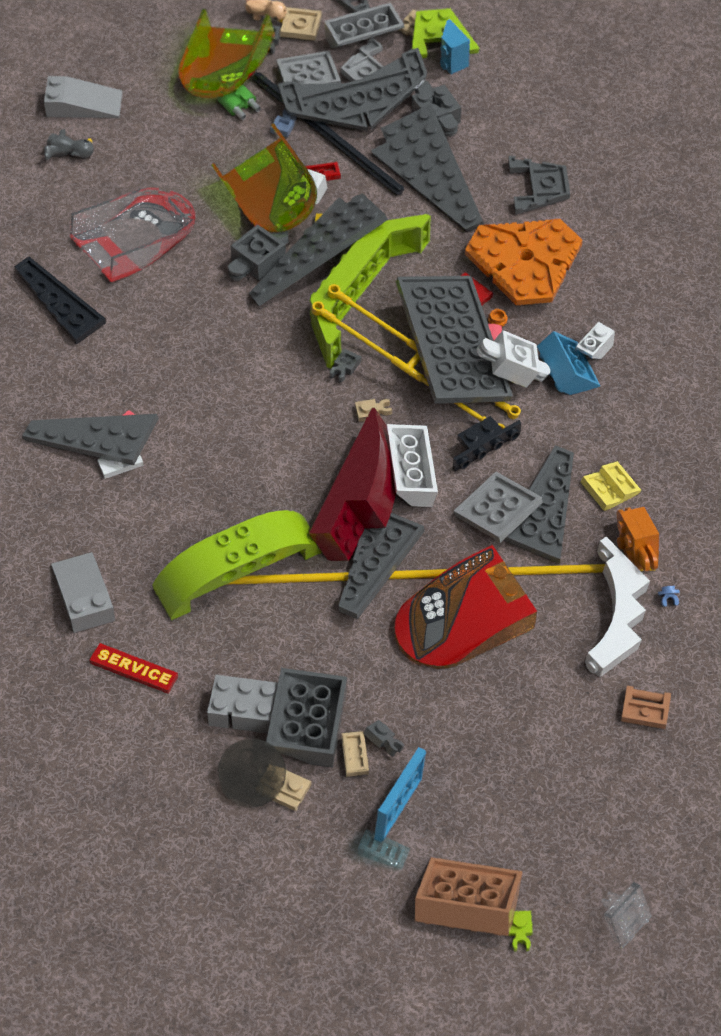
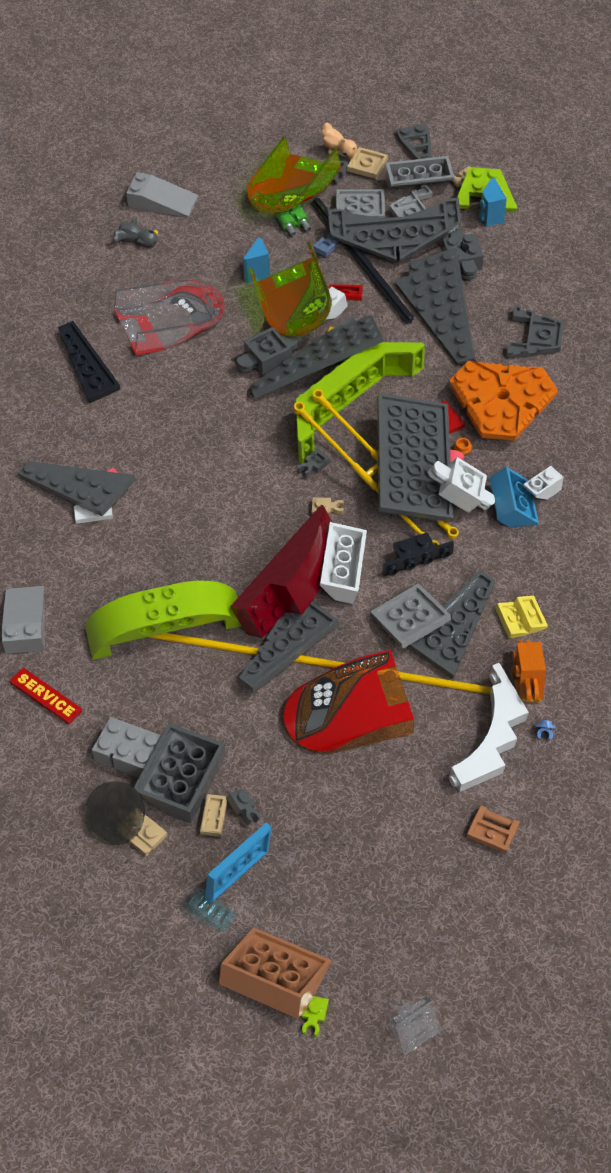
camera: 15 degrees right, 0 degrees up
(216, 152) = (258, 259): none -> dark azure slope

